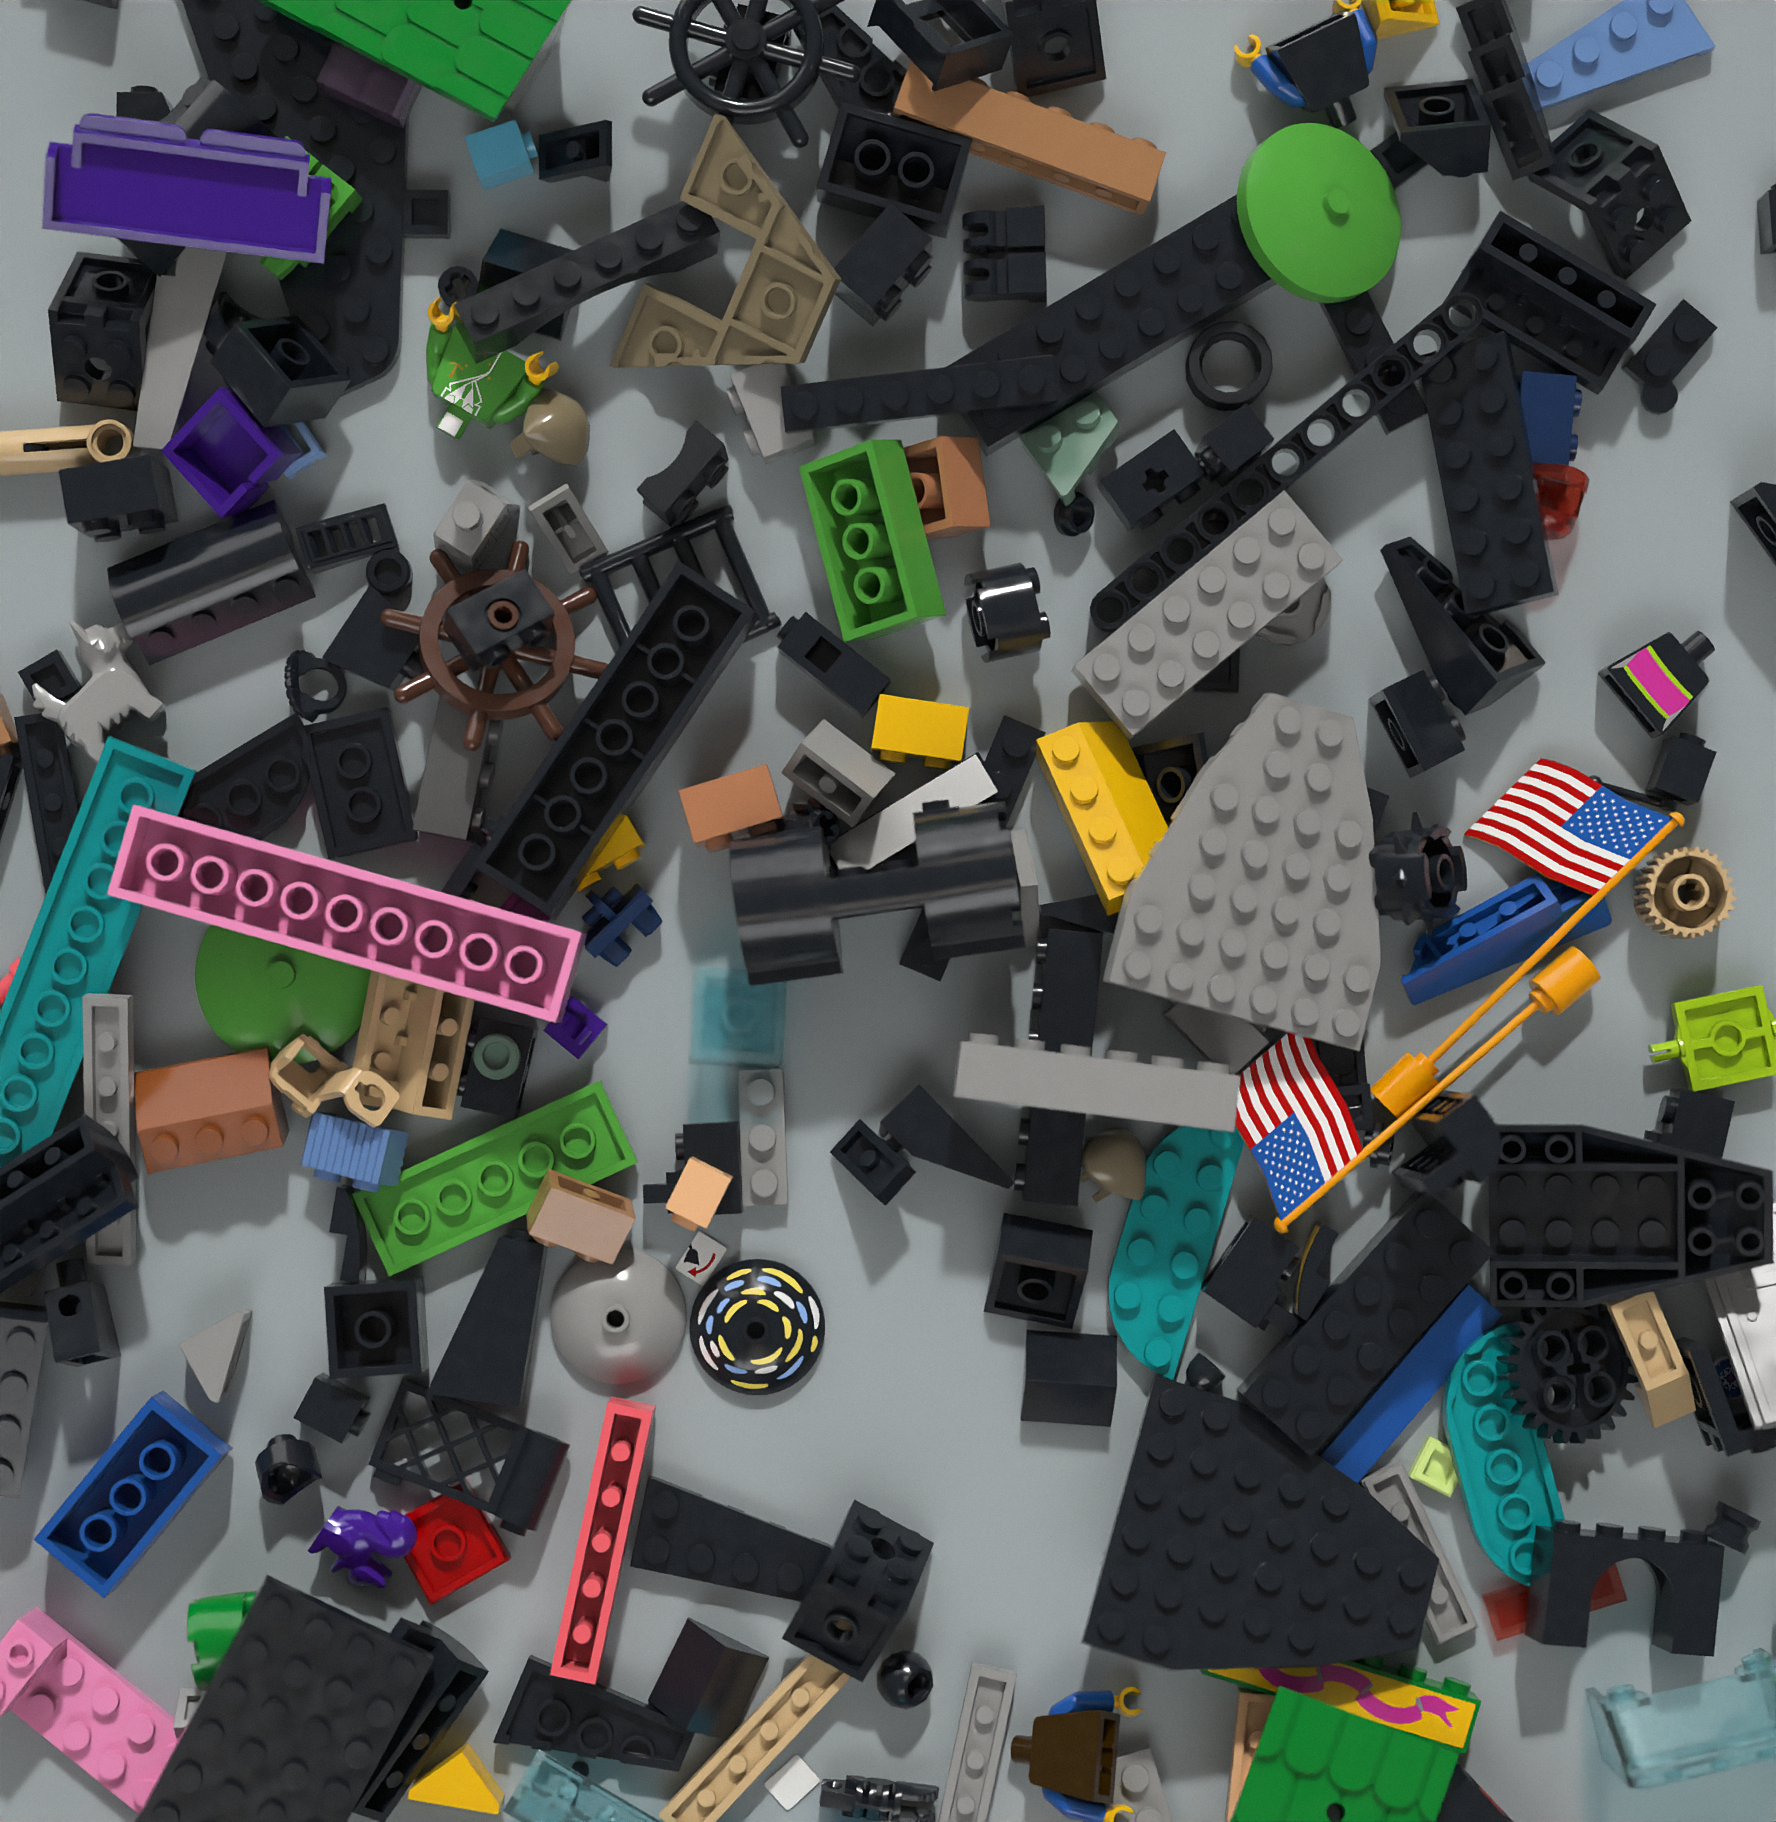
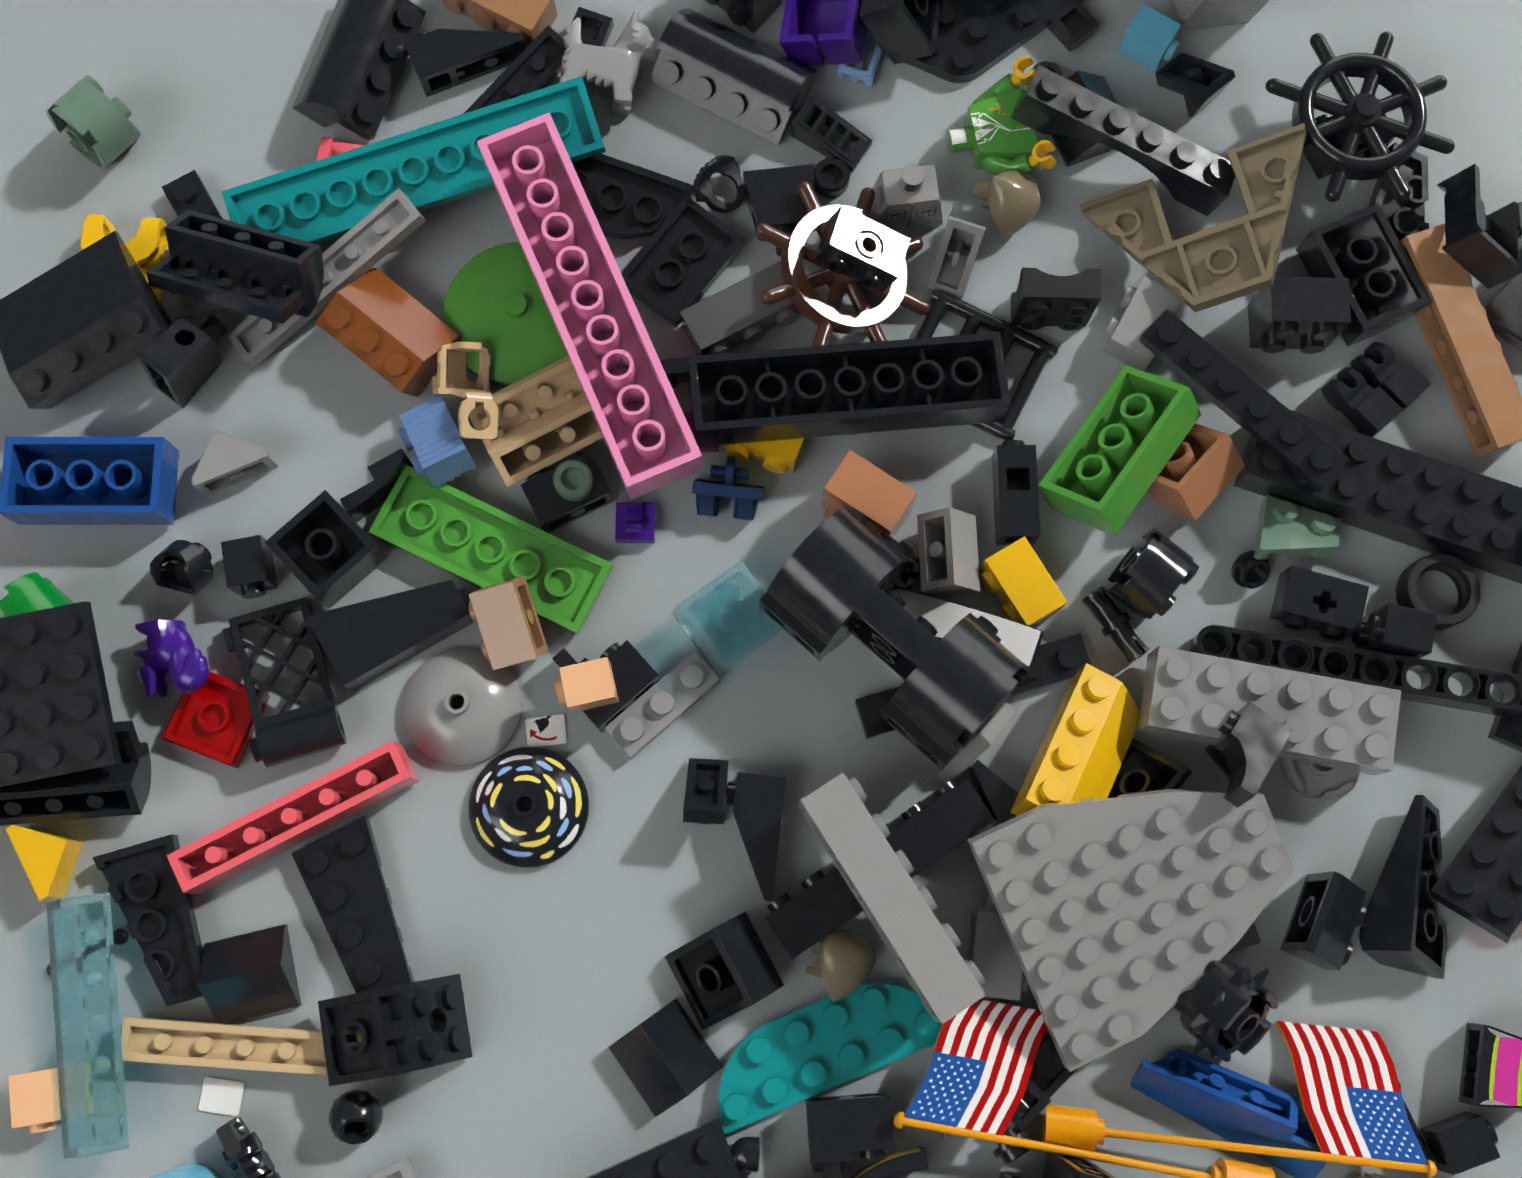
camera: 50 degrees right, 10 degrees down
(1022, 676) = (1116, 624): none -> black pin
(1223, 670) = (1250, 746): none -> black arch

